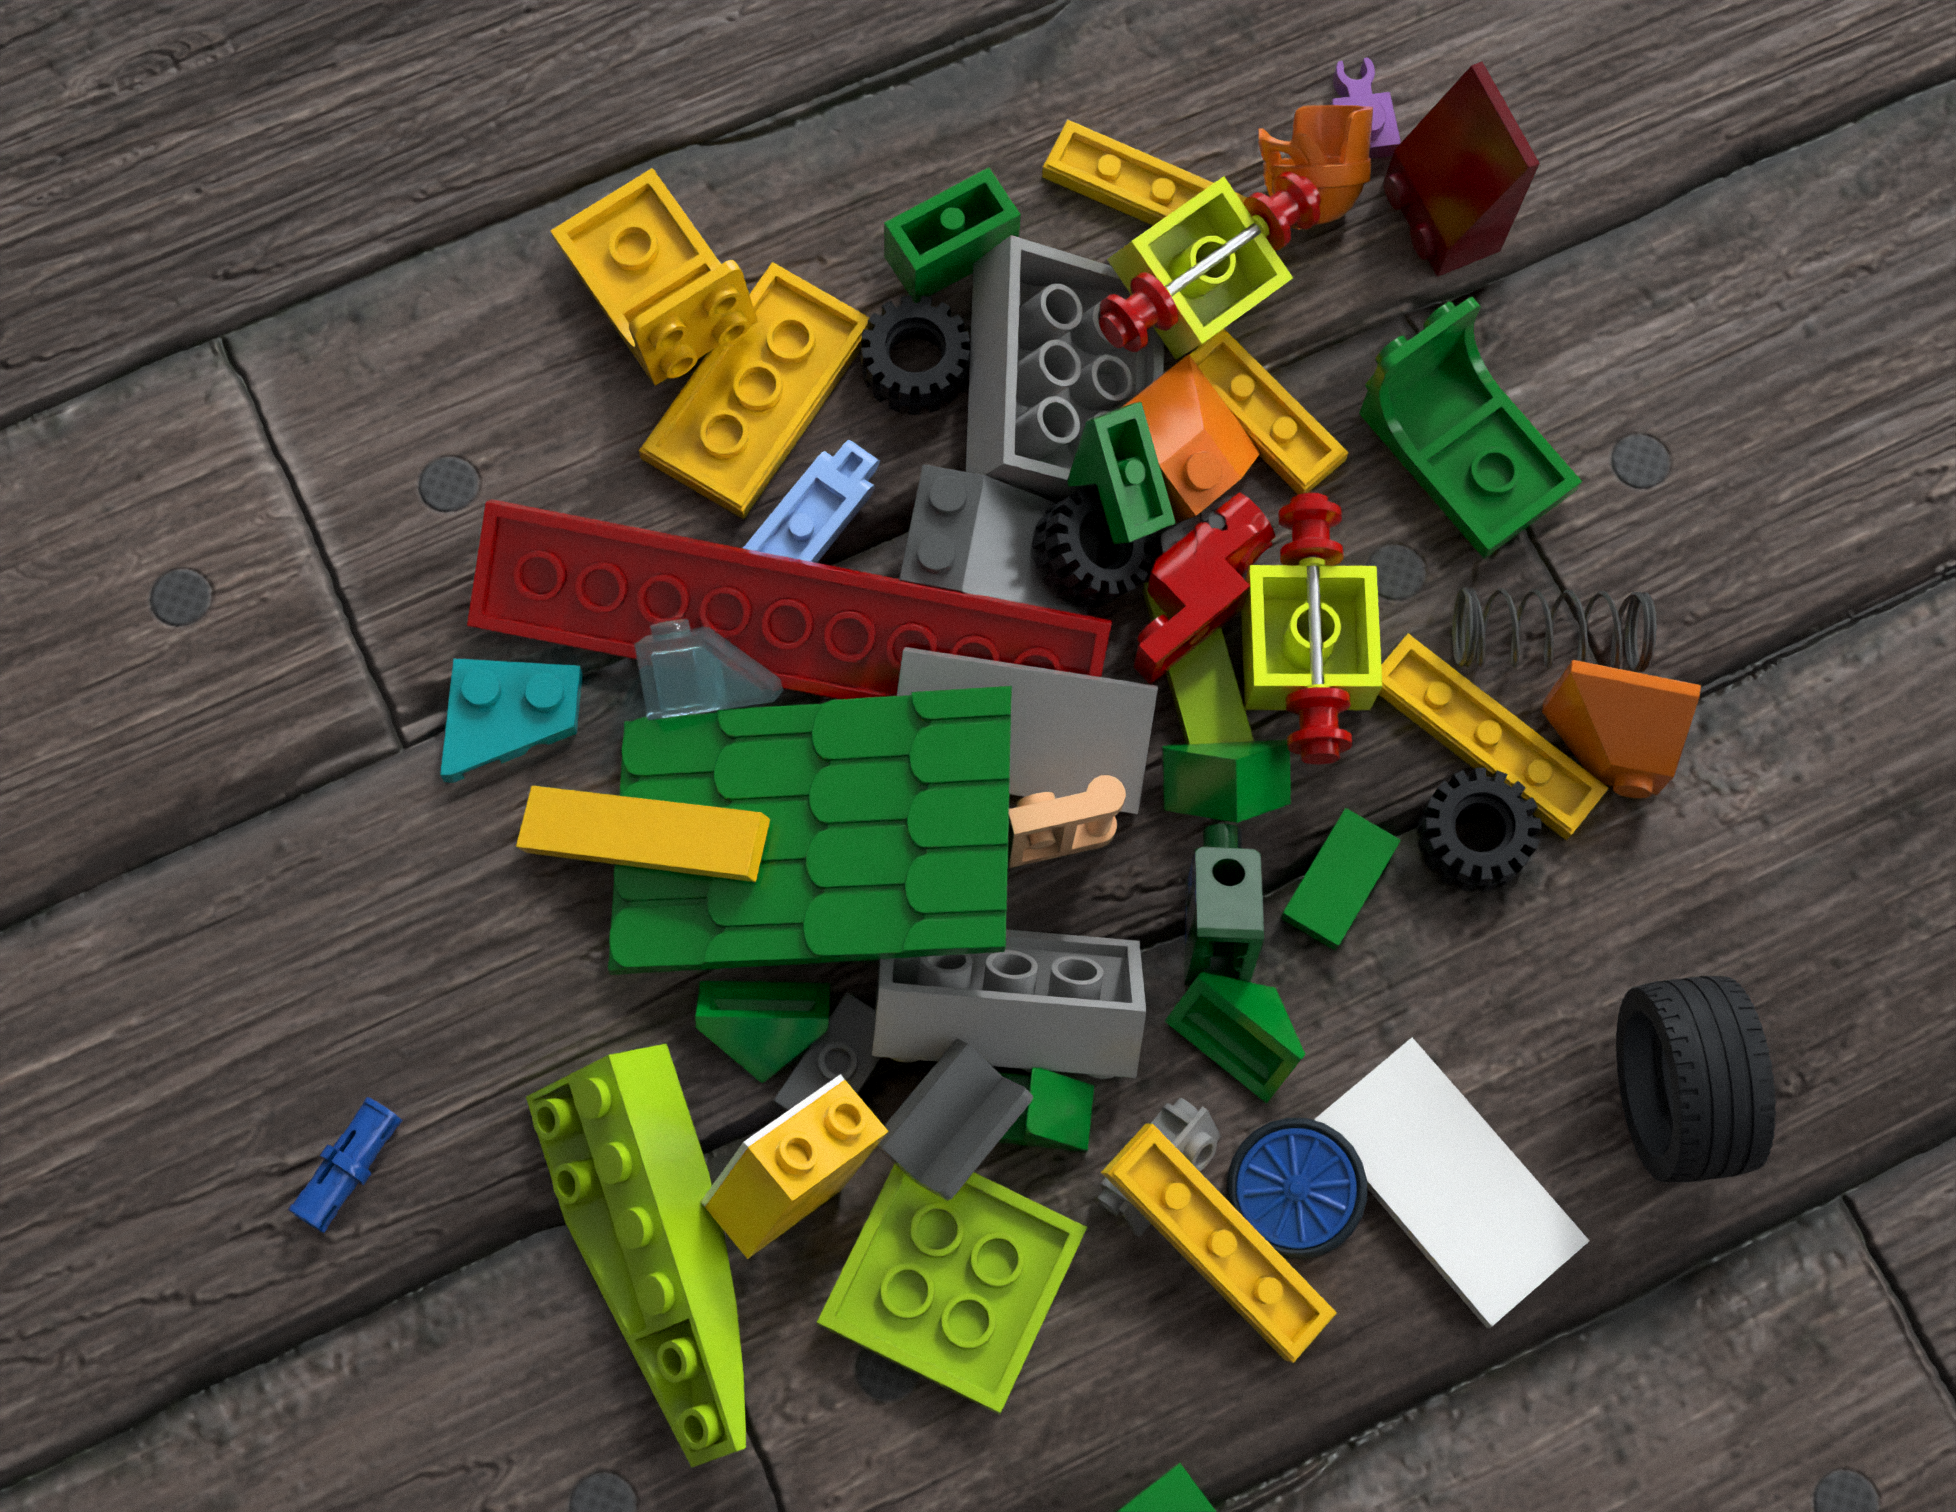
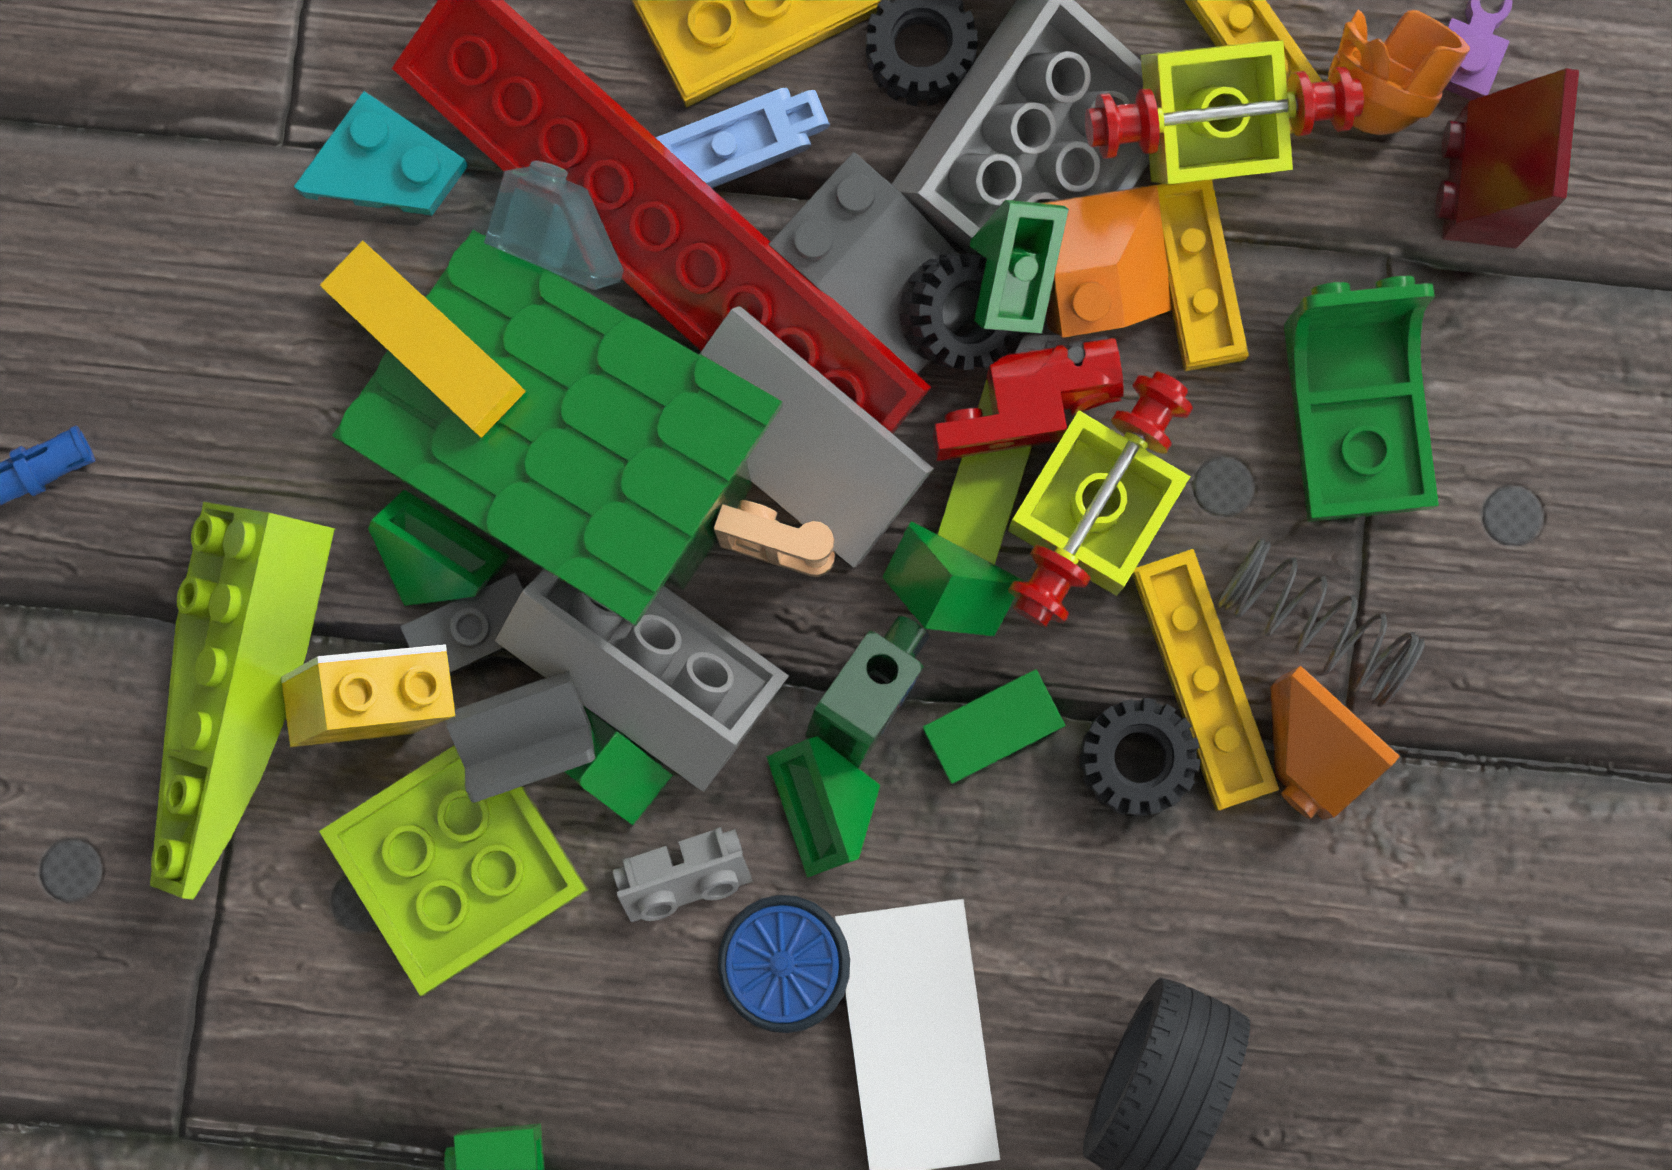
camera: 40 degrees right, 10 degrees up
(1219, 1242) = (683, 969): yellow tile -> none

